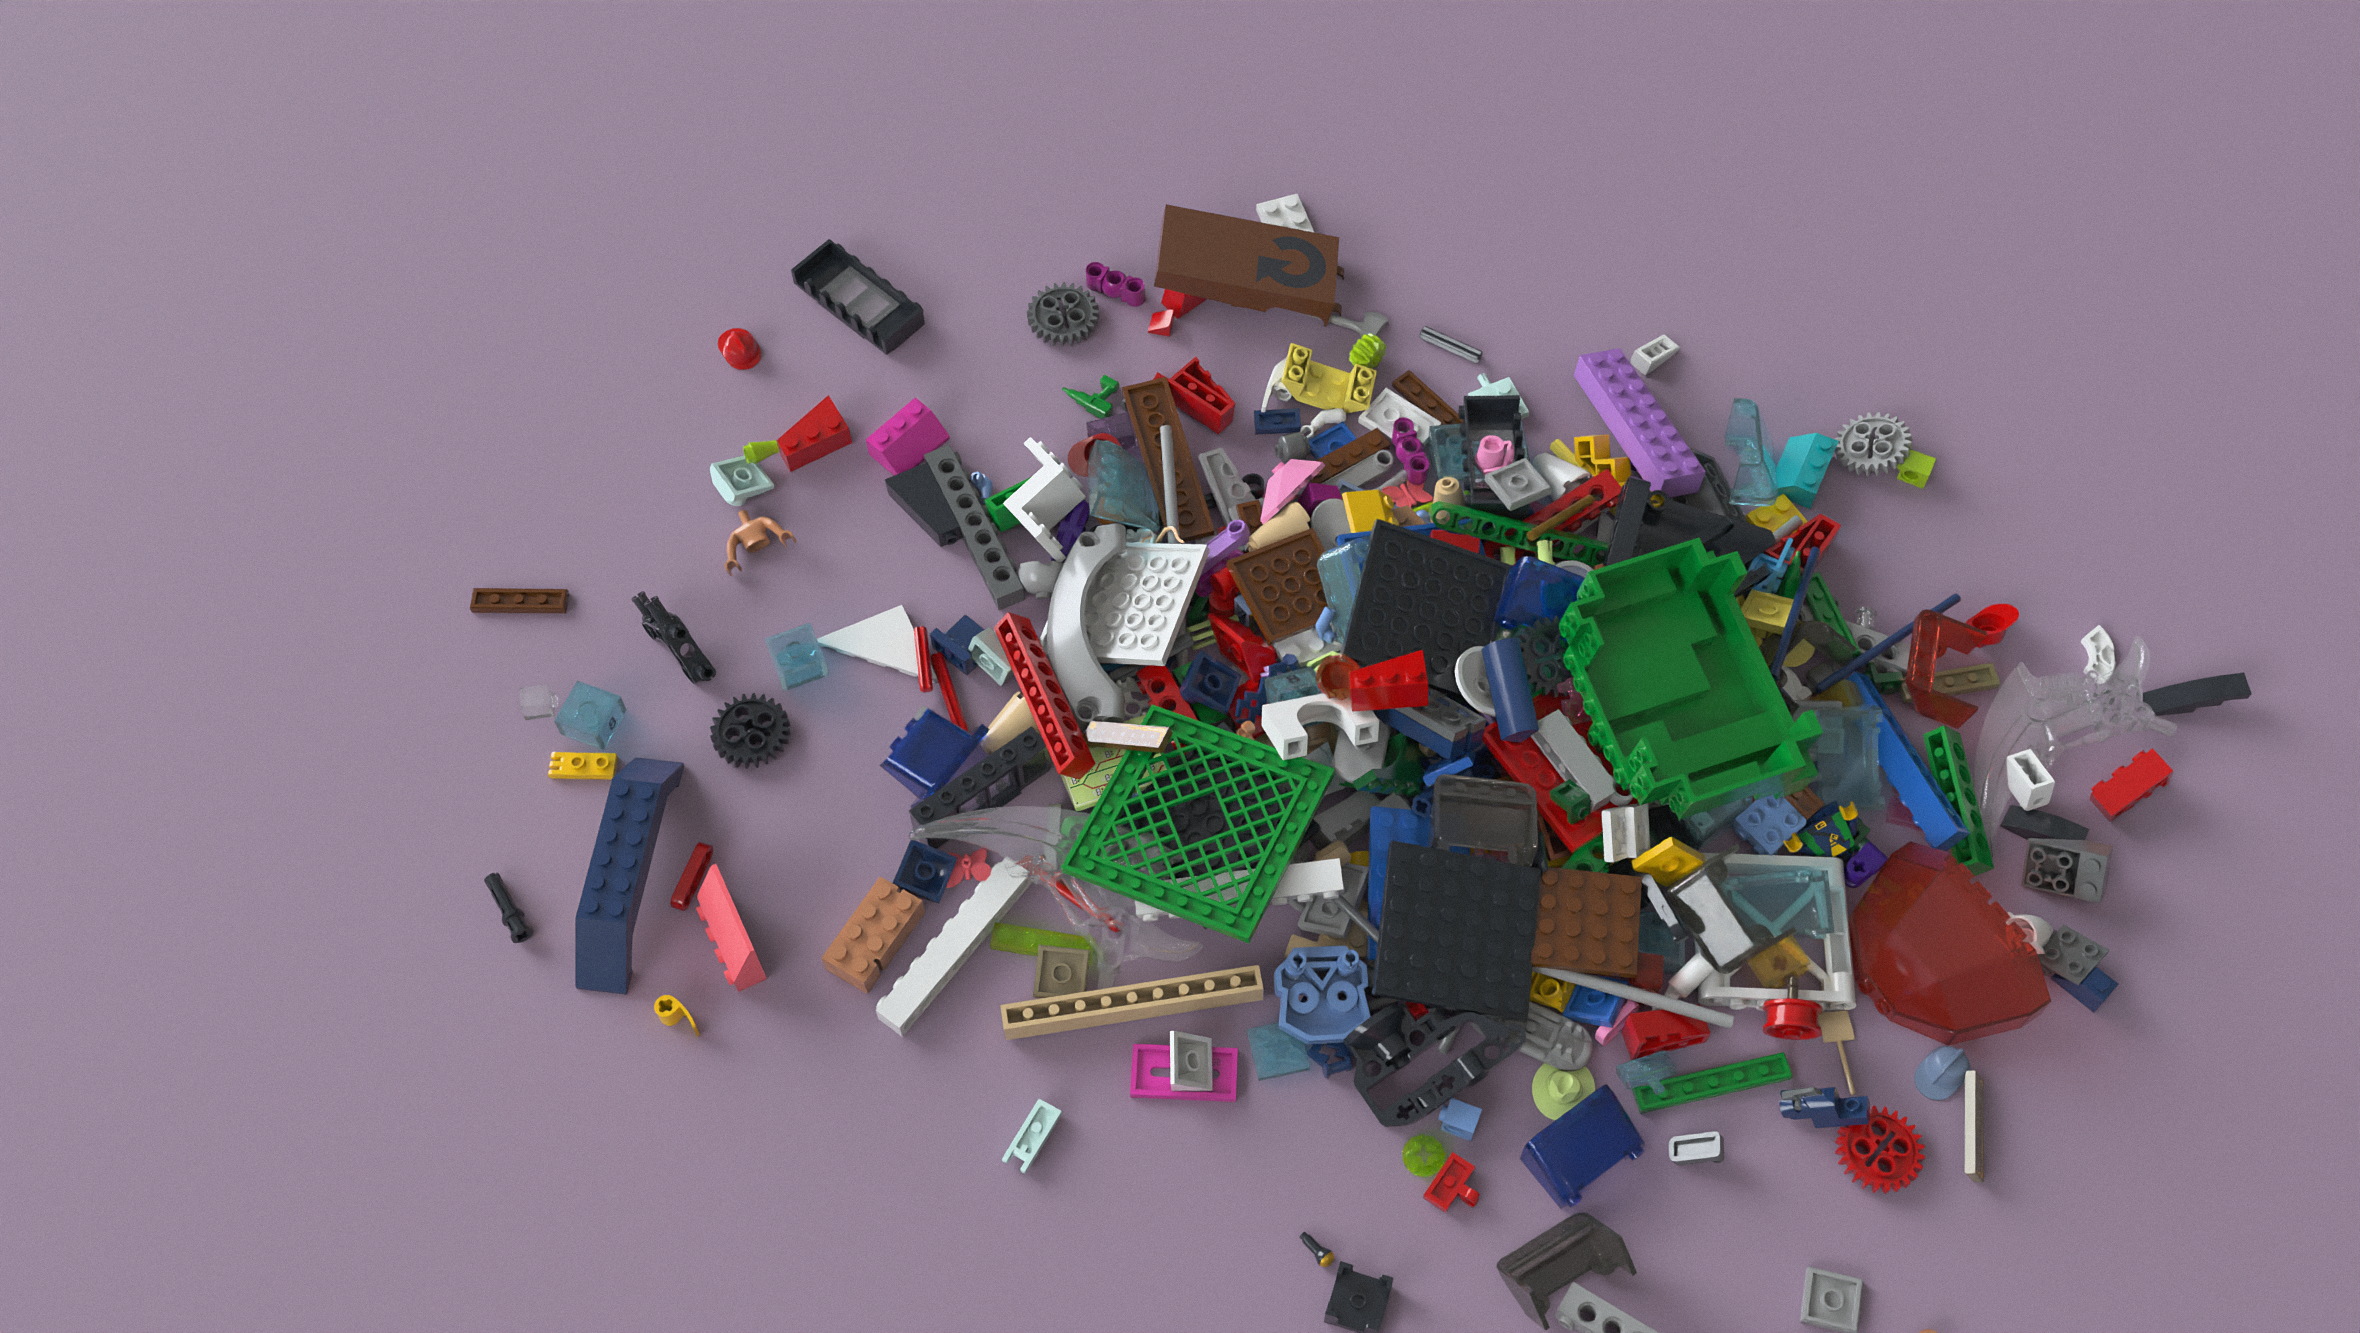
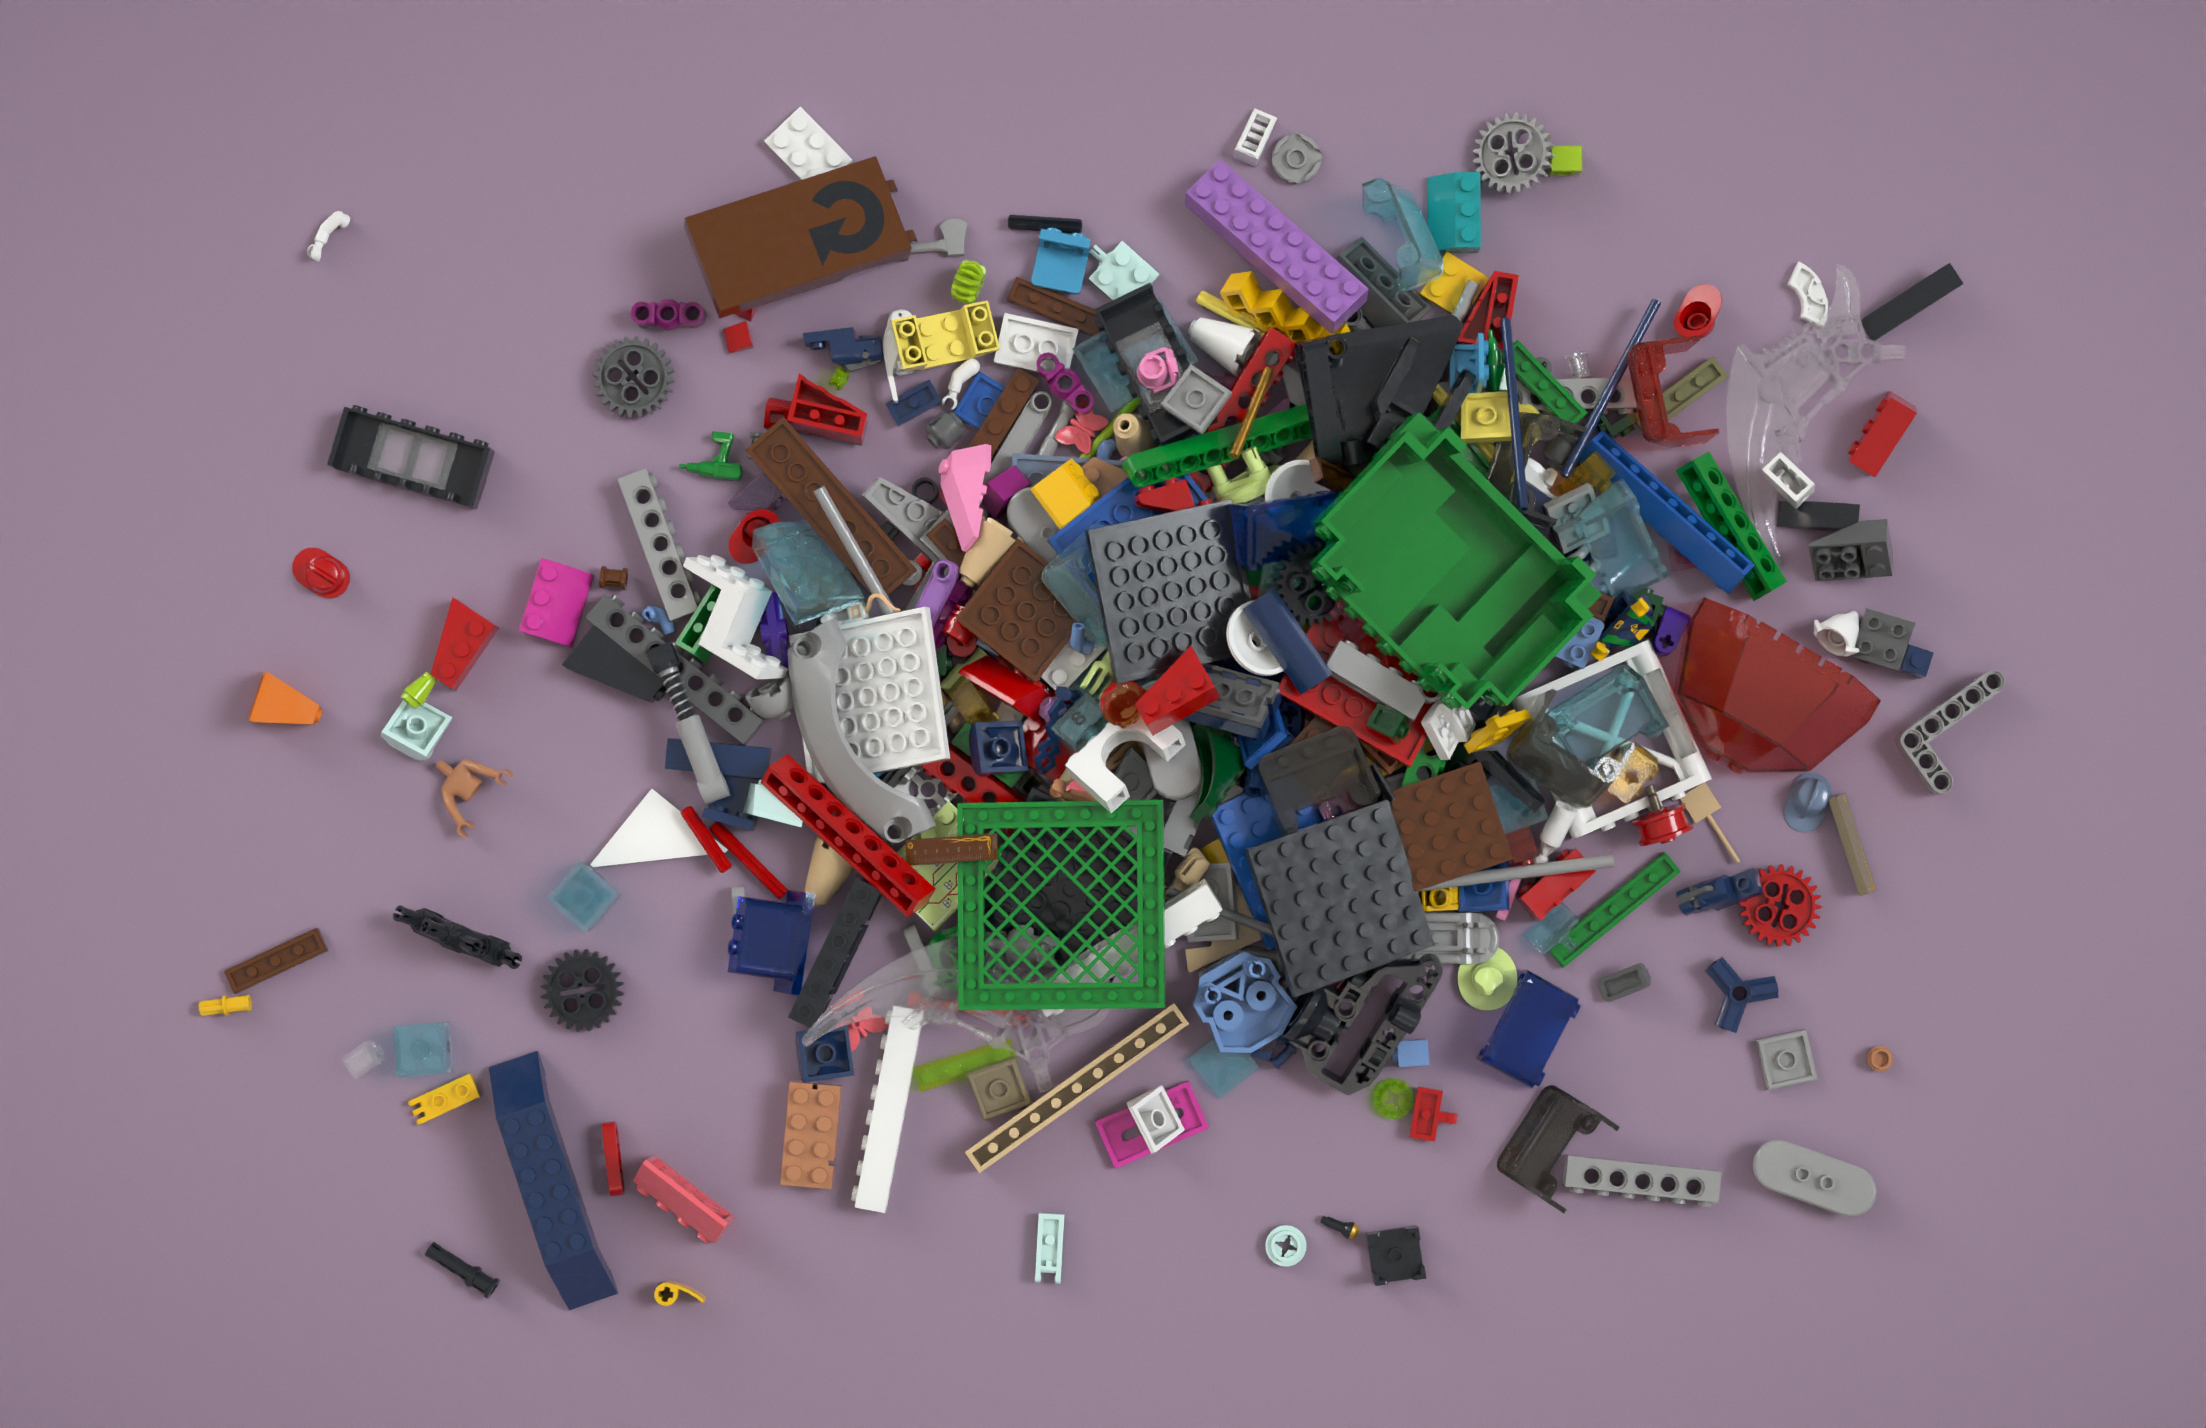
camera: 25 degrees left, 25 degrees up
(457, 614) = (225, 1005): none -> yellow axle
(646, 415) = (282, 704): none -> orange slope
(886, 134) = (324, 231): none -> white arm
(953, 606) = (690, 727): none -> piece
(965, 599) = (731, 758): none -> dark blue brick
(970, 445) = (613, 578): none -> reddish brown bush
(1017, 385) = (631, 487): none -> light grey brick
(1206, 639) = (973, 704): none -> clear yellow brick
(1226, 379) = (839, 378): none -> clear neon green bush
(1243, 359) = (847, 349): none -> dark blue plate
(1255, 1229) = (1292, 1256): none -> light aqua gear
(1452, 369) = (1061, 261): none -> dark azure bracket
(1683, 382) = (1296, 159): none -> light grey tile
(1795, 1222) = (1754, 990): none -> dark blue piece
(2105, 1056) = (1942, 723): none -> light grey beam

